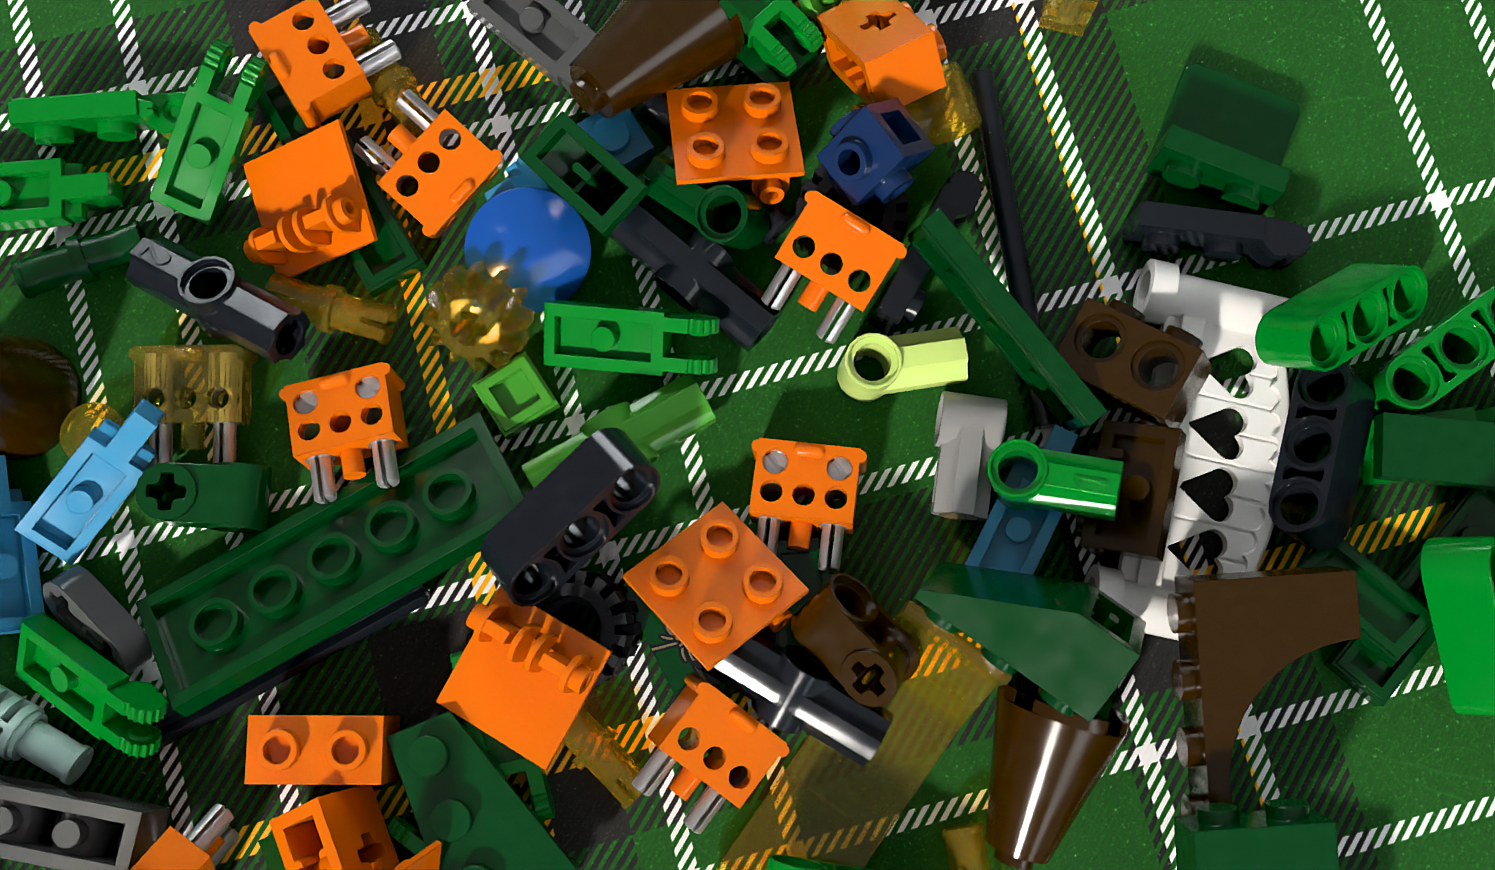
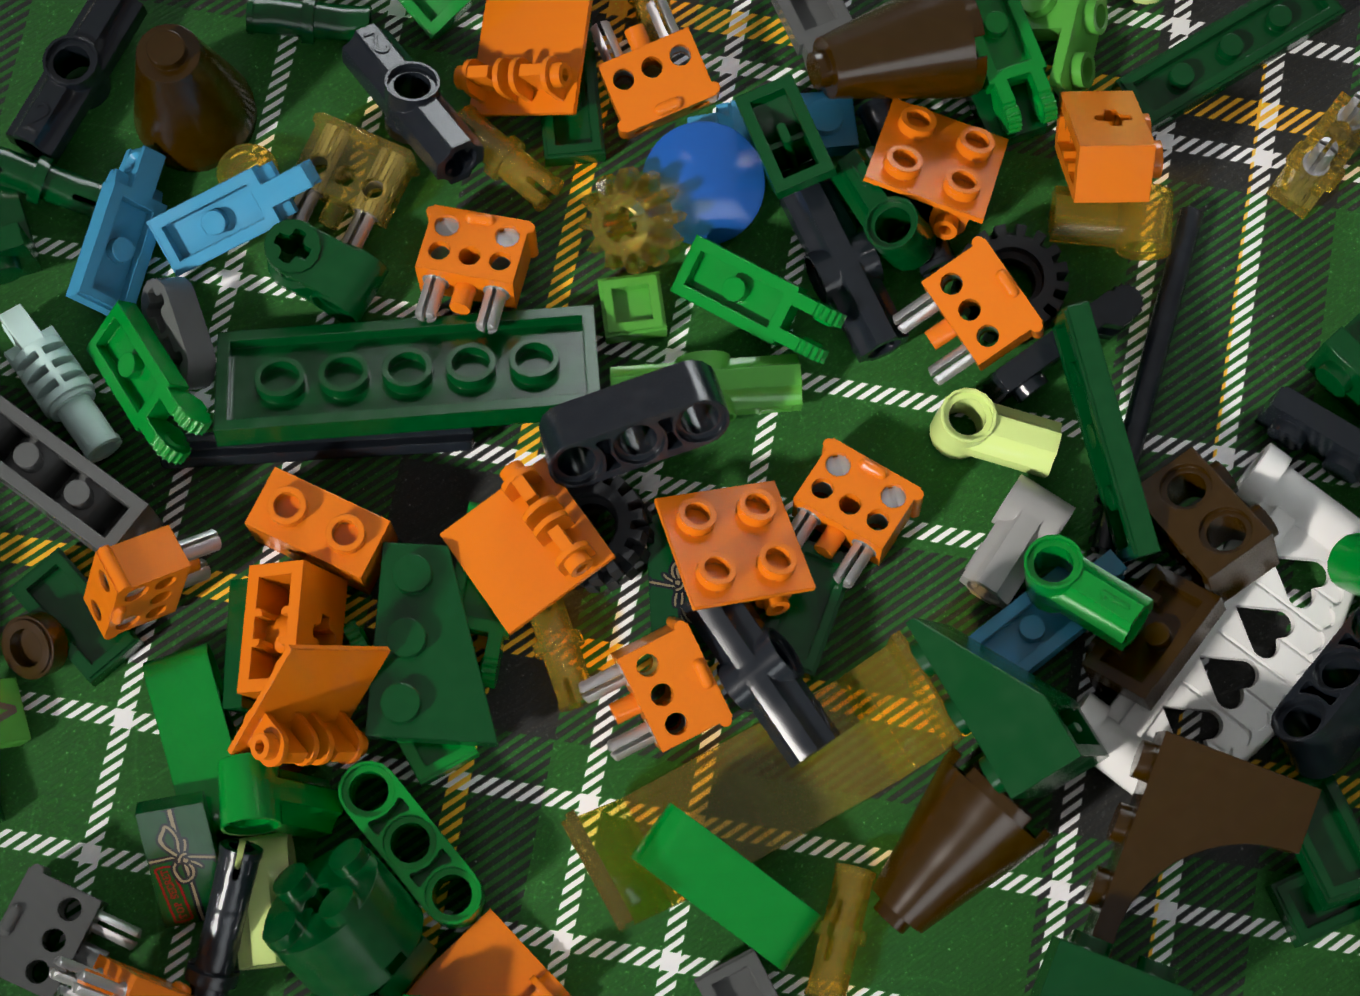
camera: 25 degrees right, 5 degrees down
(854, 636) = (834, 647): dark brown piece -> none
(874, 152) = (1054, 230): dark blue brick -> none

